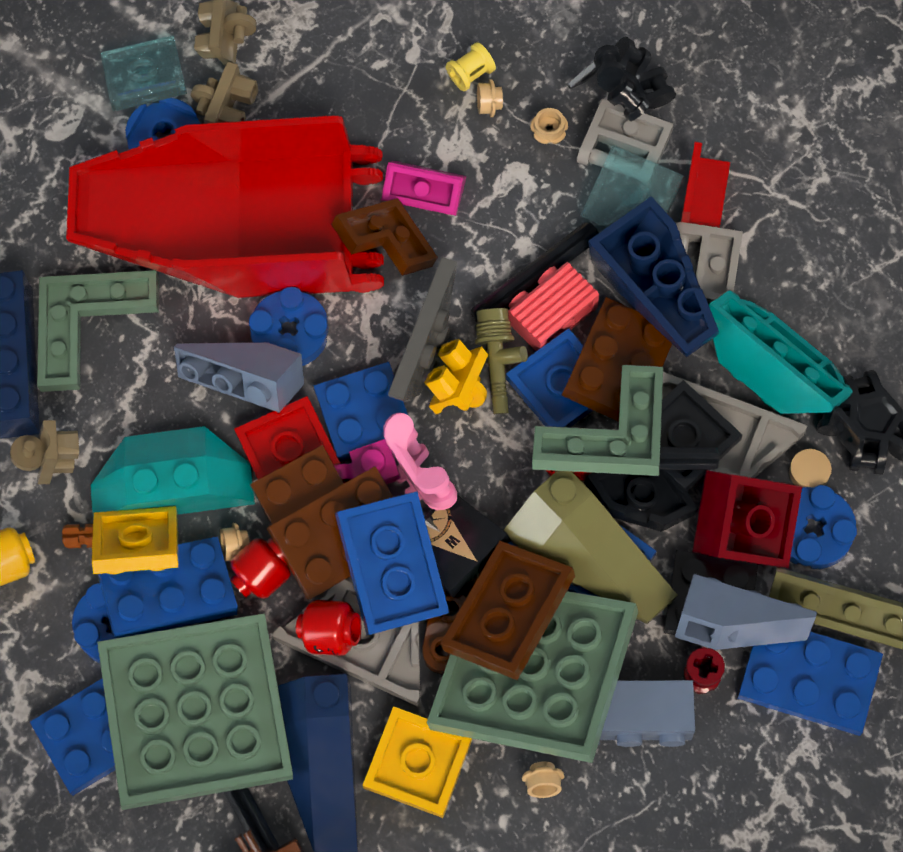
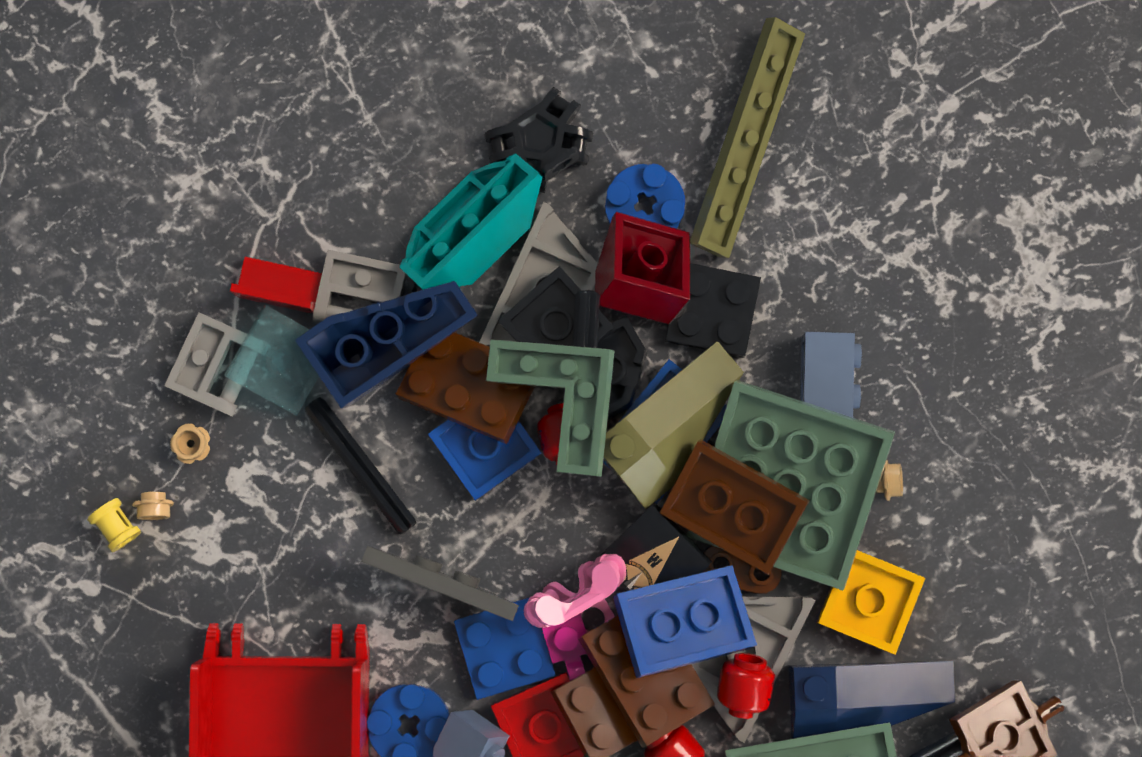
camera: 90 degrees left, 15 degrees up
(386, 226) = (302, 620): reddish brown plate -> none
(423, 187) = (252, 580): dark pink slope -> none
(460, 380) = (483, 548): yellow hips -> none
(493, 330) = (430, 510): olive piece -> none
(553, 306) = (402, 449): coral brick -> none
(628, 83) = (144, 362): black piece -> none
(716, 669) = (801, 317): dark red bush -> none
(734, 617) = (747, 292): sand blue slope -> none
(810, 468) = (585, 203): tan tile -> none
(814, 680) = (793, 221): blue plate -> none

